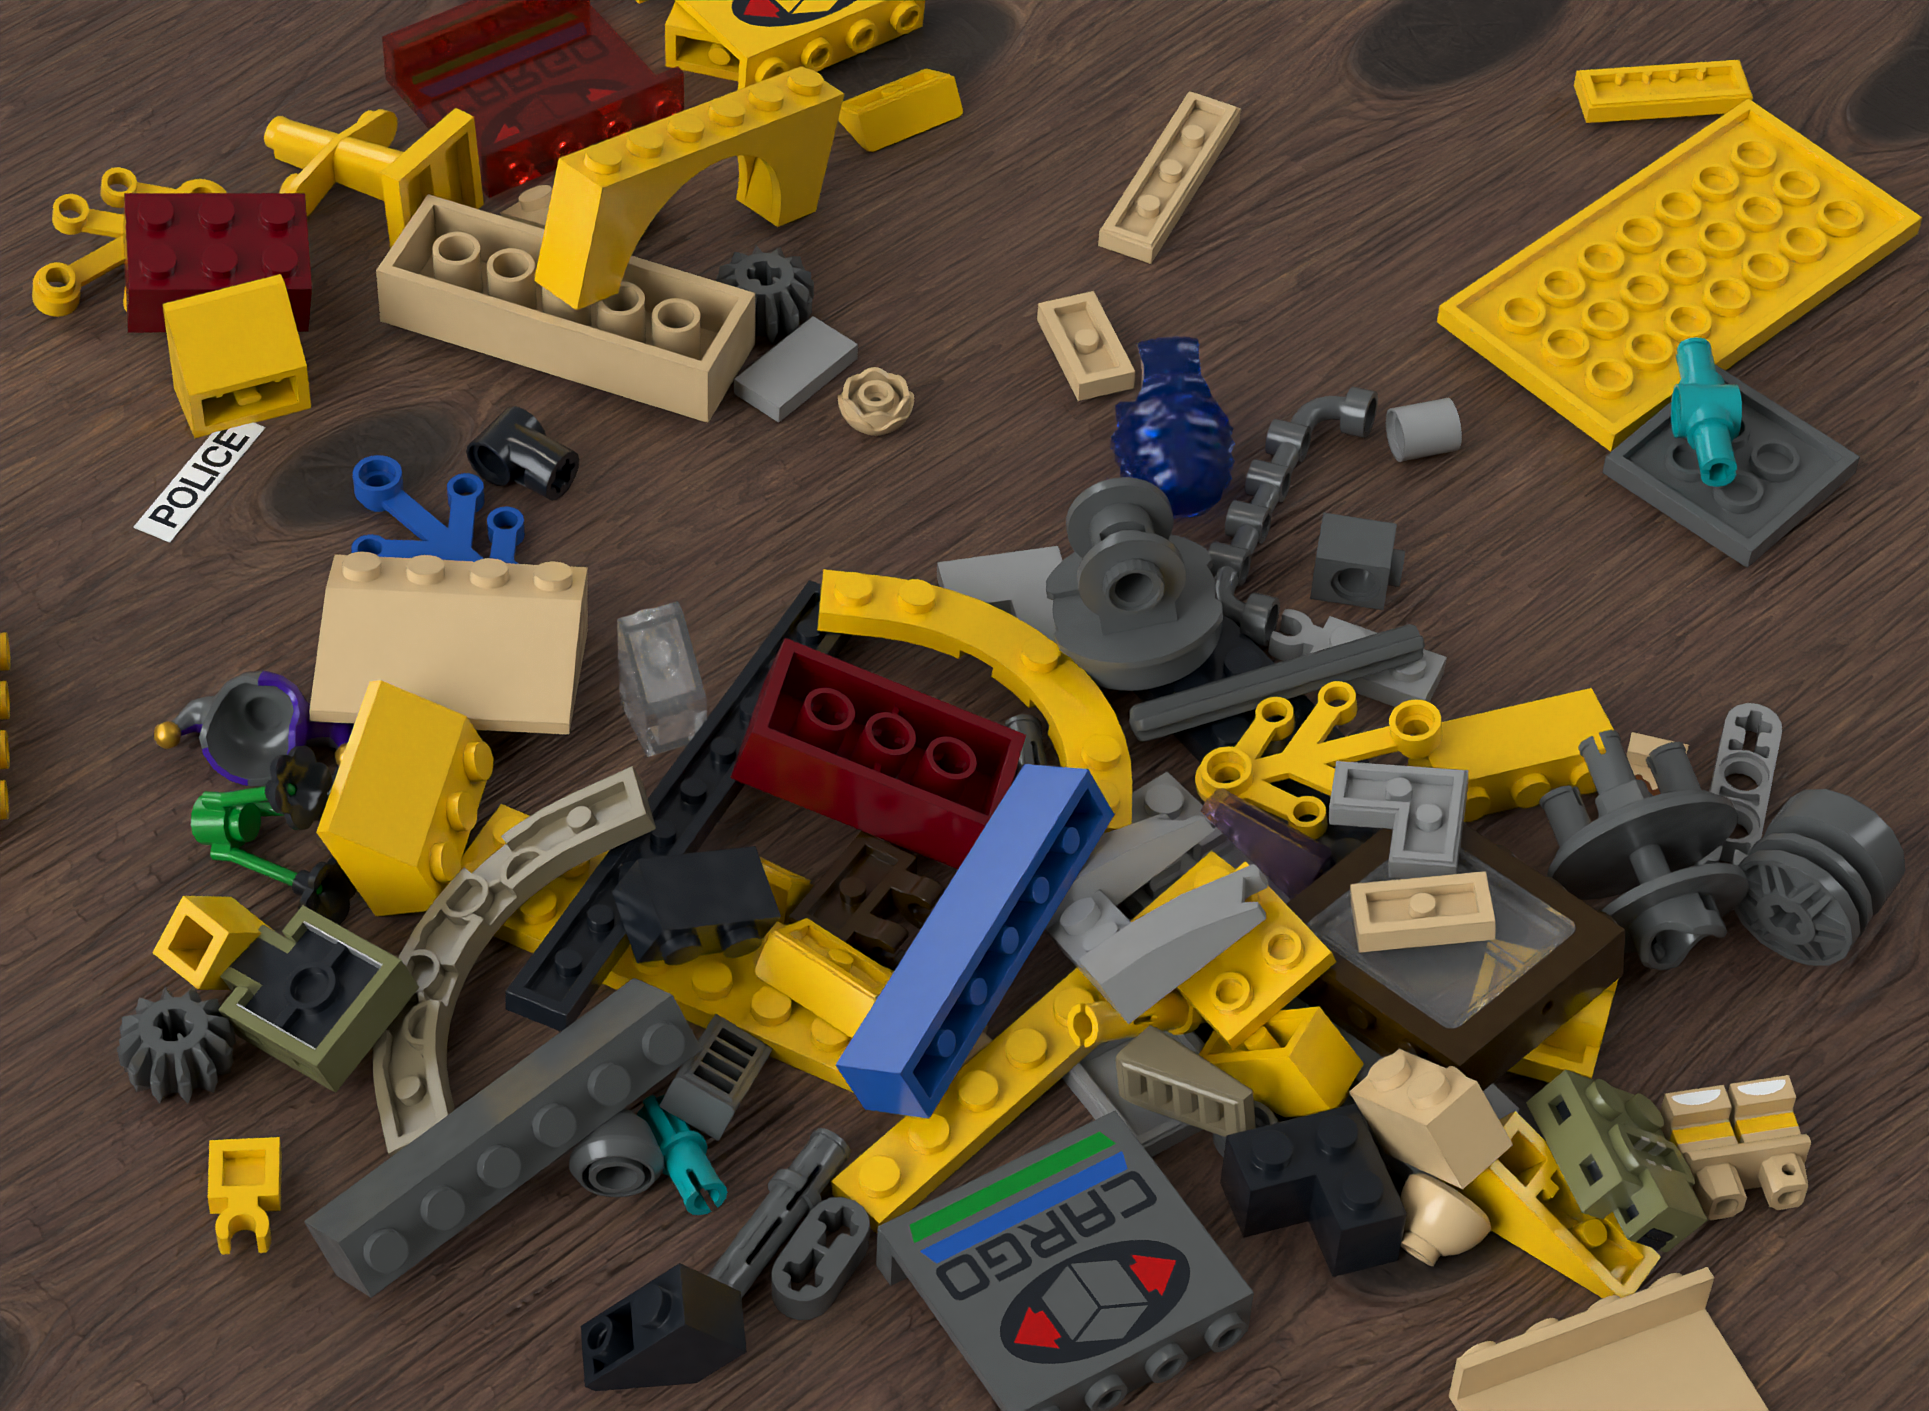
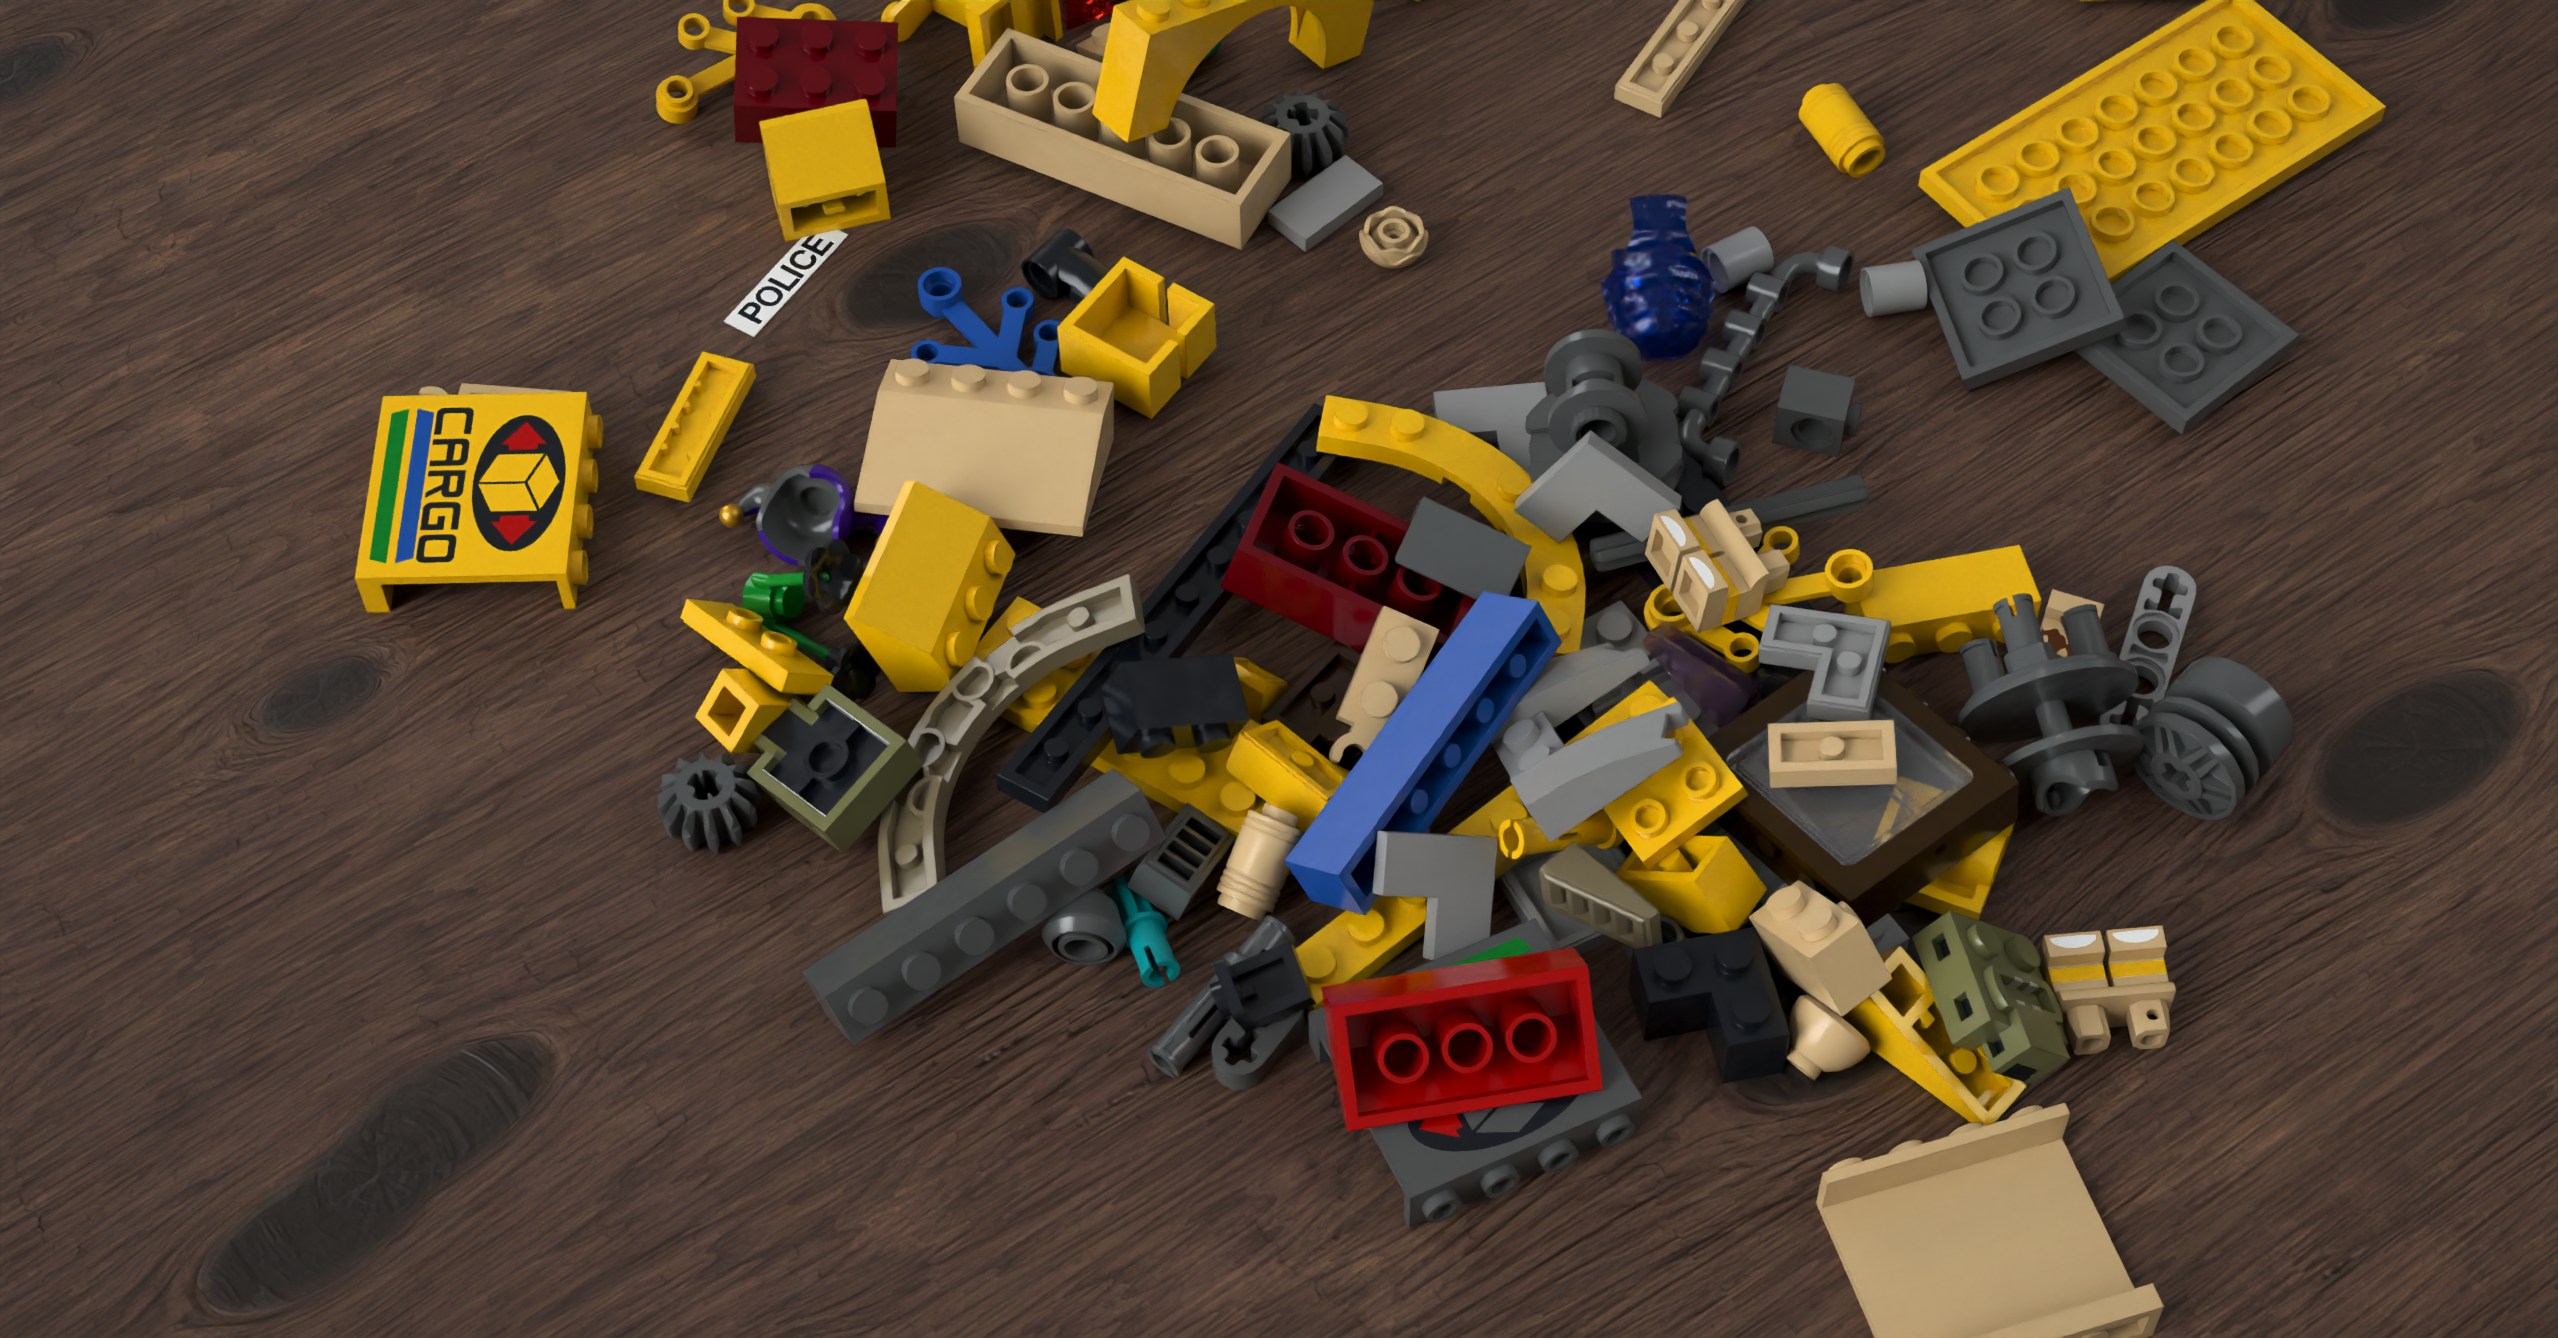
camera: 10 degrees right, 5 degrees up
(115, 641) = (695, 427): none -> yellow plate
(224, 877) = (756, 647): none -> yellow plate
(244, 1185) = (752, 933): yellow plate -> none
(589, 518) = (1124, 340): none -> yellow piece
(660, 678) = (1168, 488): clear slope -> none
(664, 1333) = (1110, 1096): black slope -> none
(804, 1070) = (1257, 863): none -> tan head
(824, 1203) = (1261, 987): none -> black bracket
(921, 864) = (1383, 677): none -> tan plate
(993, 723) = (1460, 551): none -> dark grey panel
(1017, 1065) = (1452, 873): none -> light grey tile
(1053, 1240) = (1462, 1038): none -> red slope
(1086, 345) = (1590, 194): tan plate -> none
(1131, 639) = (1593, 479): none -> light grey tile
(1255, 405) = (1738, 258): none -> light grey beam
(1269, 723) = (1714, 564): none -> tan hips
(1350, 266) = (1842, 129): none -> yellow head
(1392, 686) = (1843, 531): light grey plate -> none
(1560, 422) = (2019, 289): none -> dark grey plate
(1706, 412) = (2157, 286): teal pin -> none

